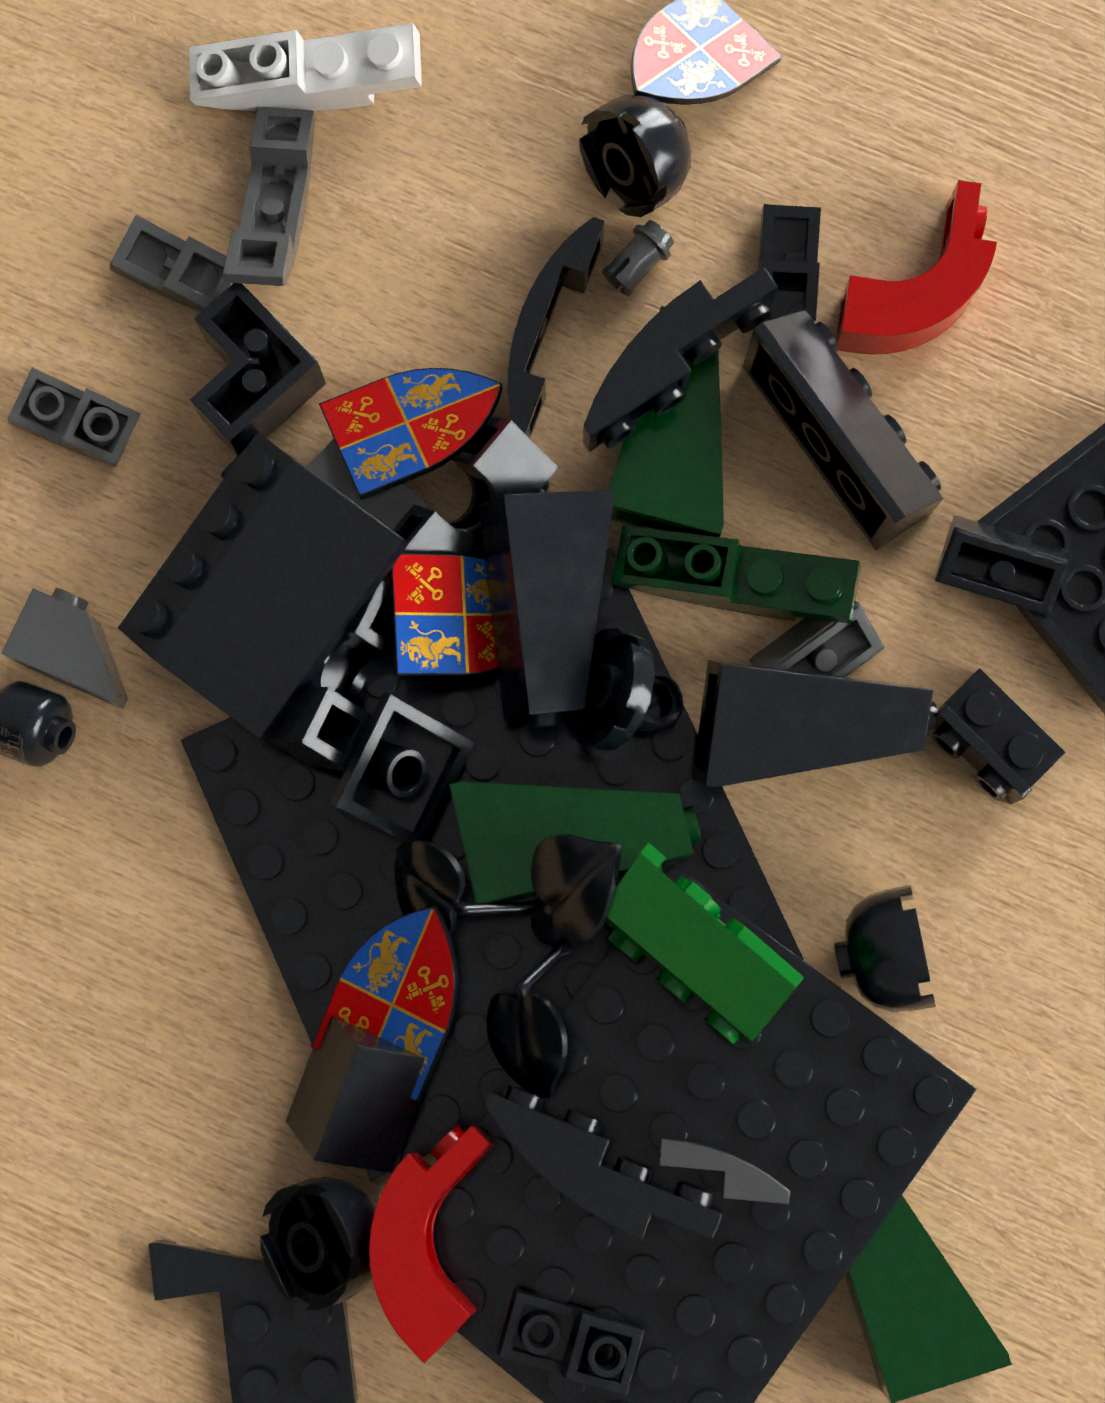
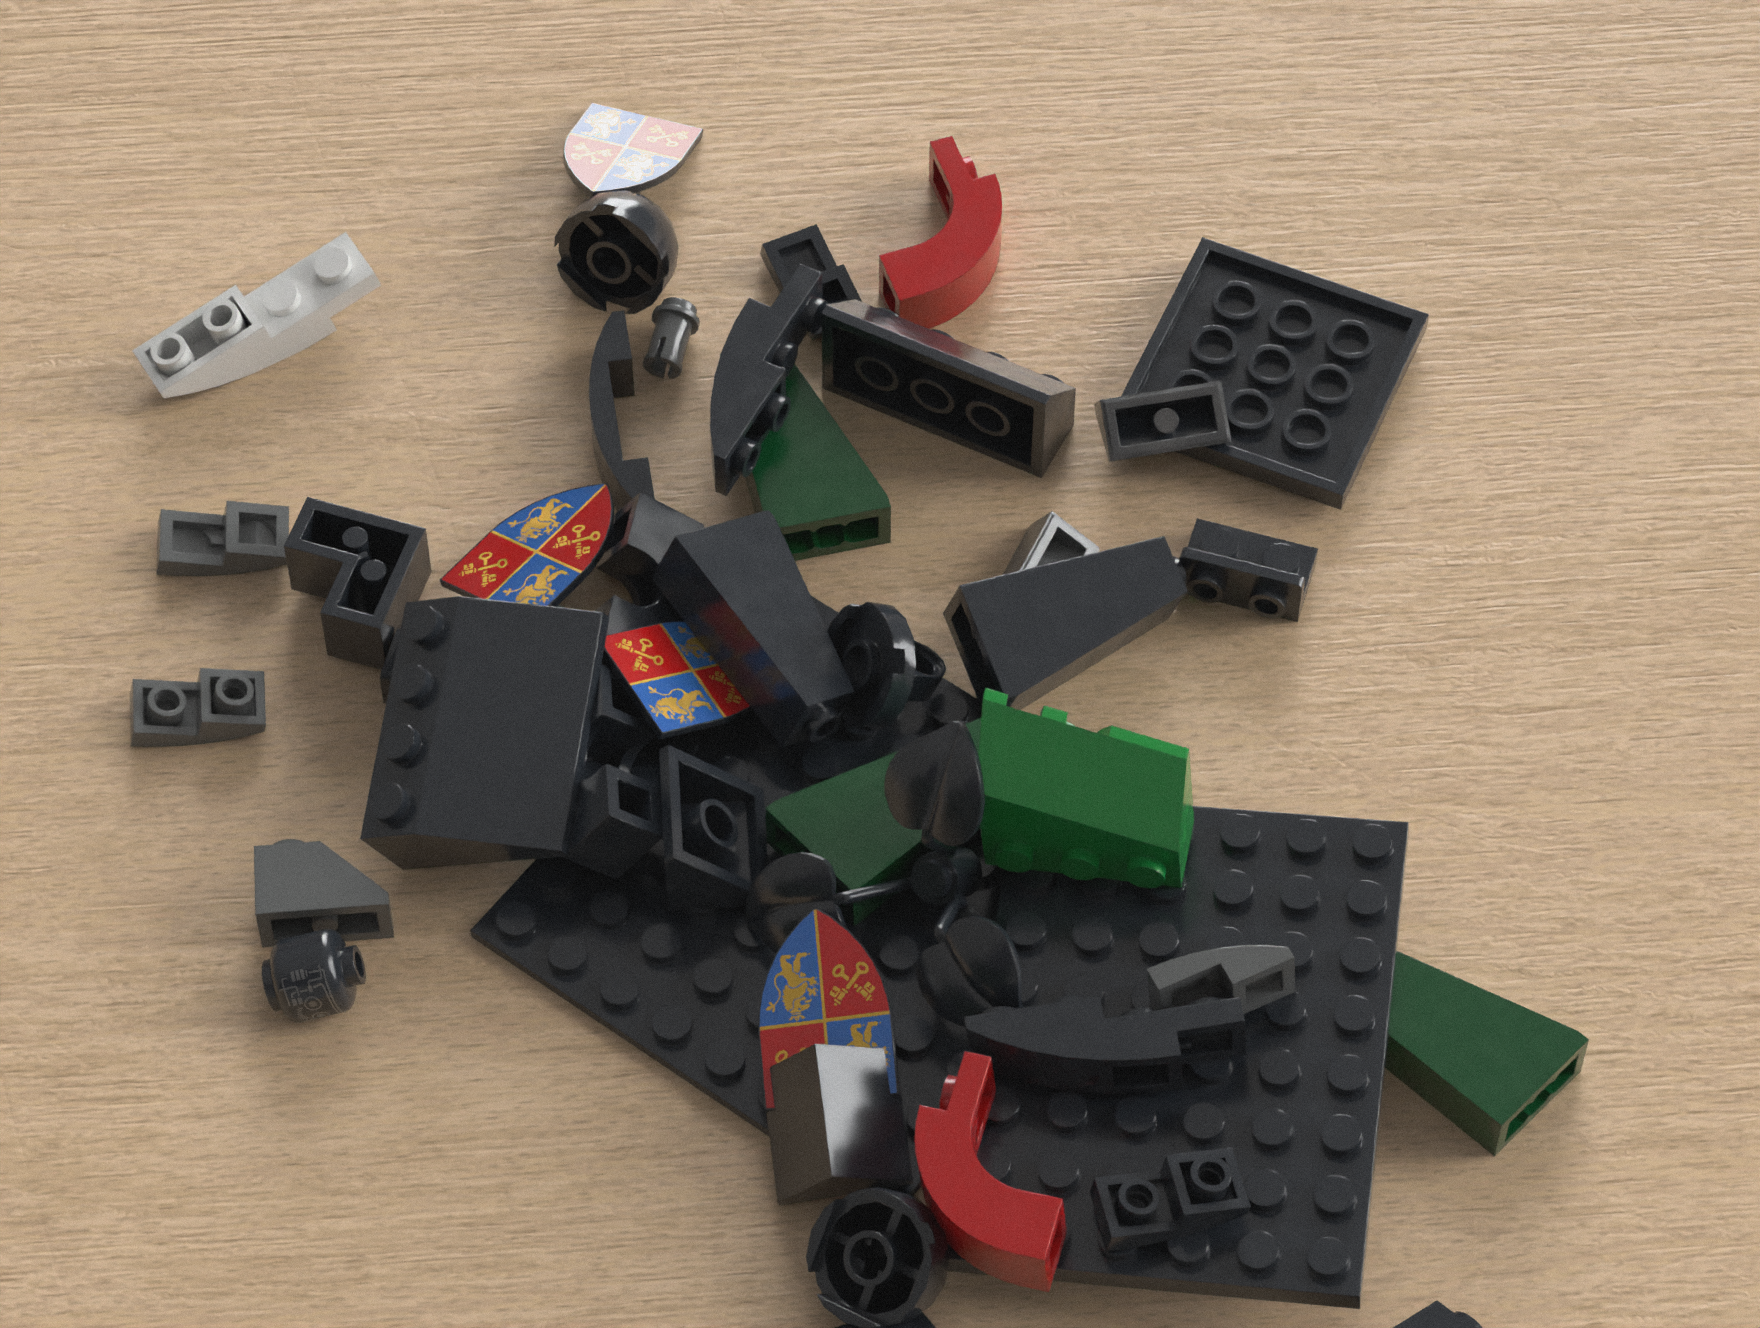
camera: 30 degrees left, 25 degrees down
(274, 198) = (286, 431): dark grey slope -> none
(736, 577) = (920, 551): dark green slope -> none
(885, 952) = (1259, 762): black cylinder -> none

